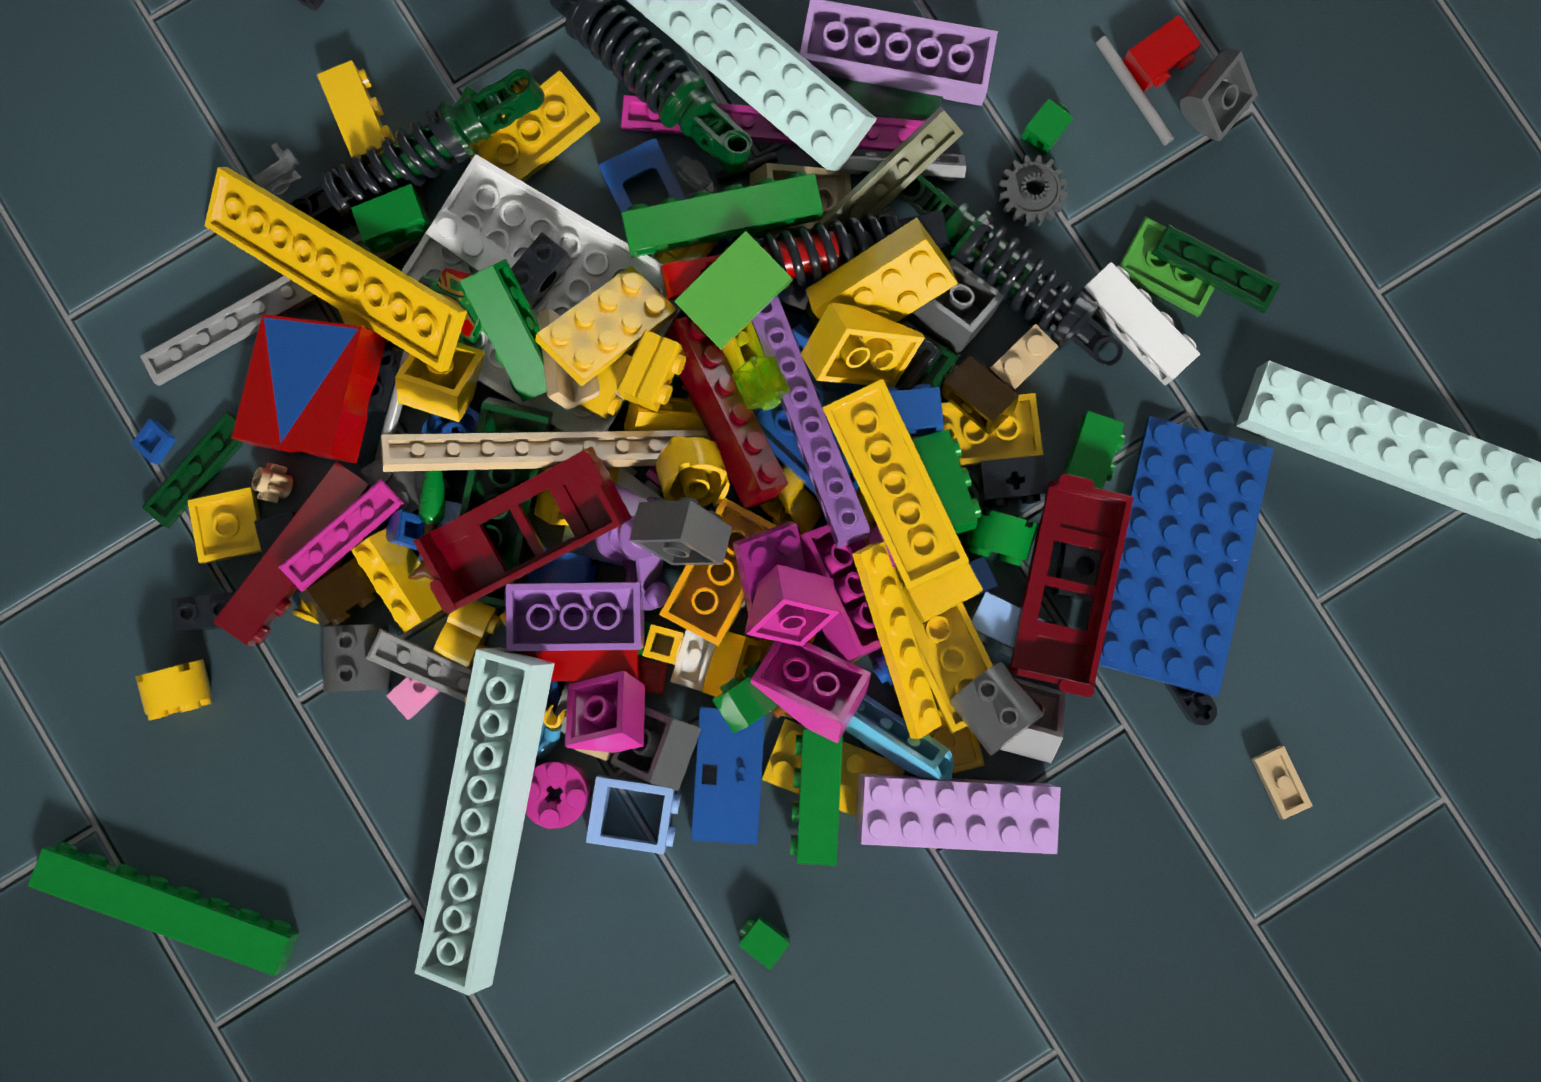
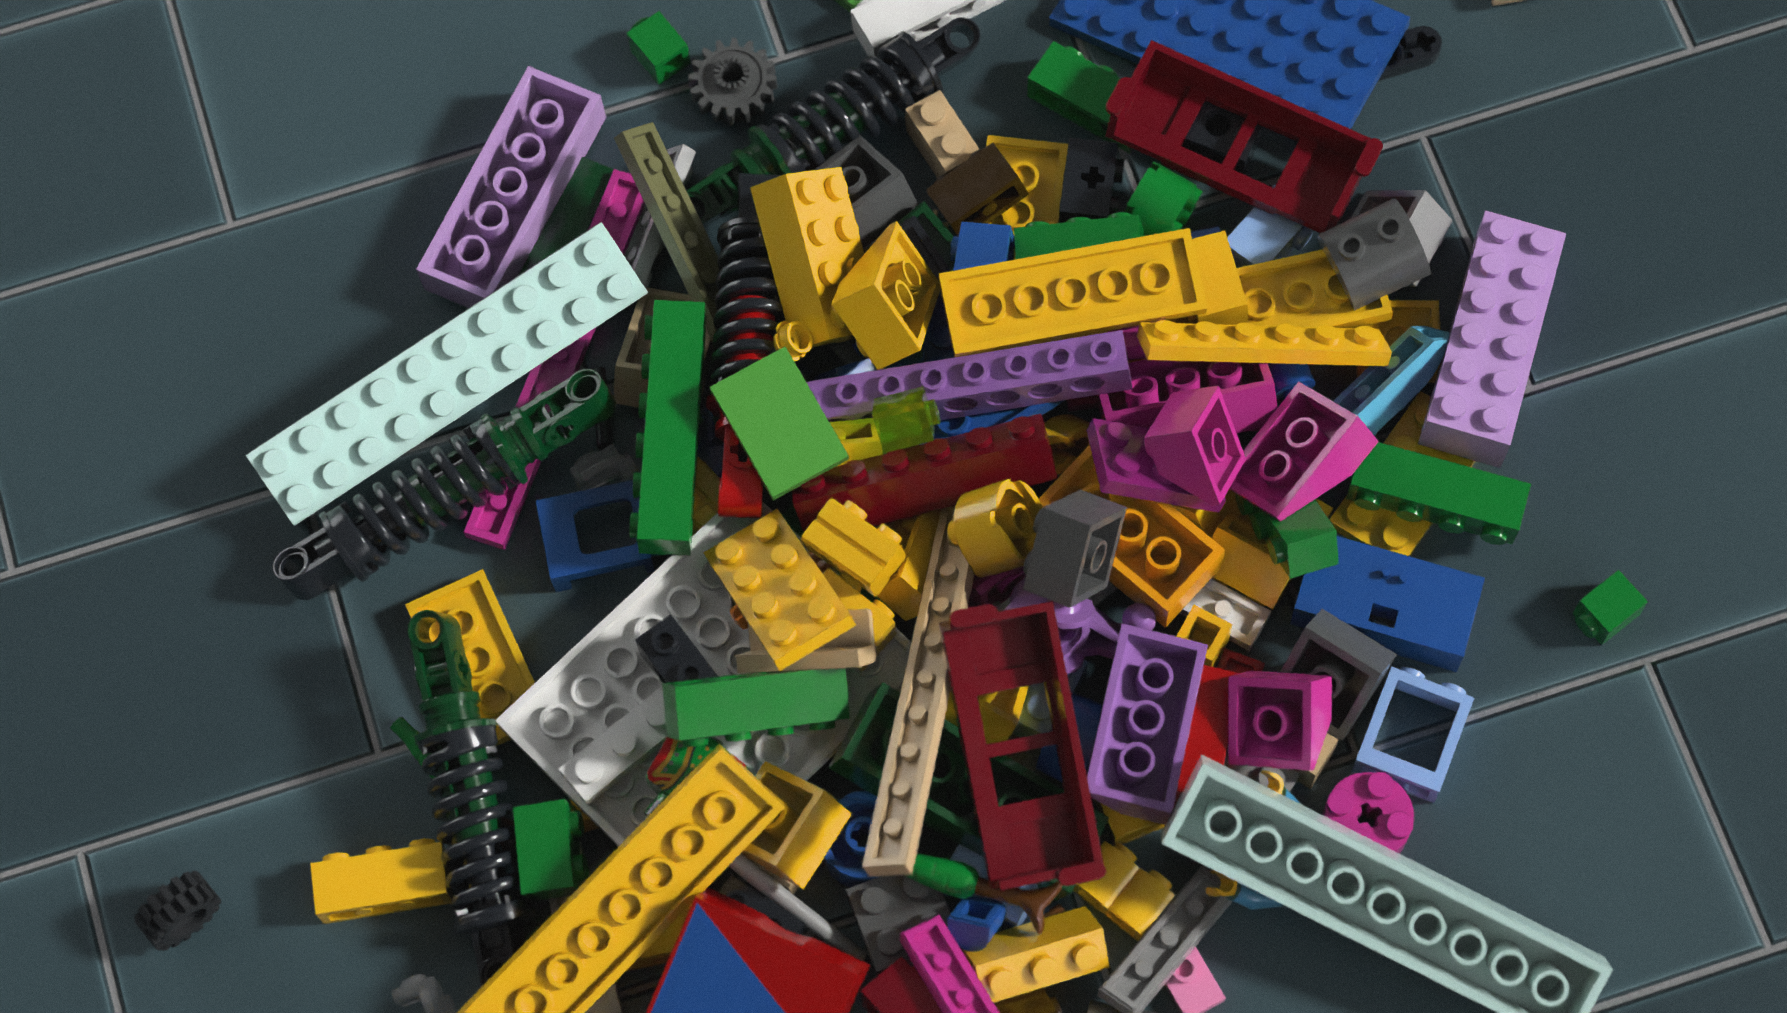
camera: 70 degrees left, 15 degrees down
(810, 290) = (795, 337): none -> yellow plate

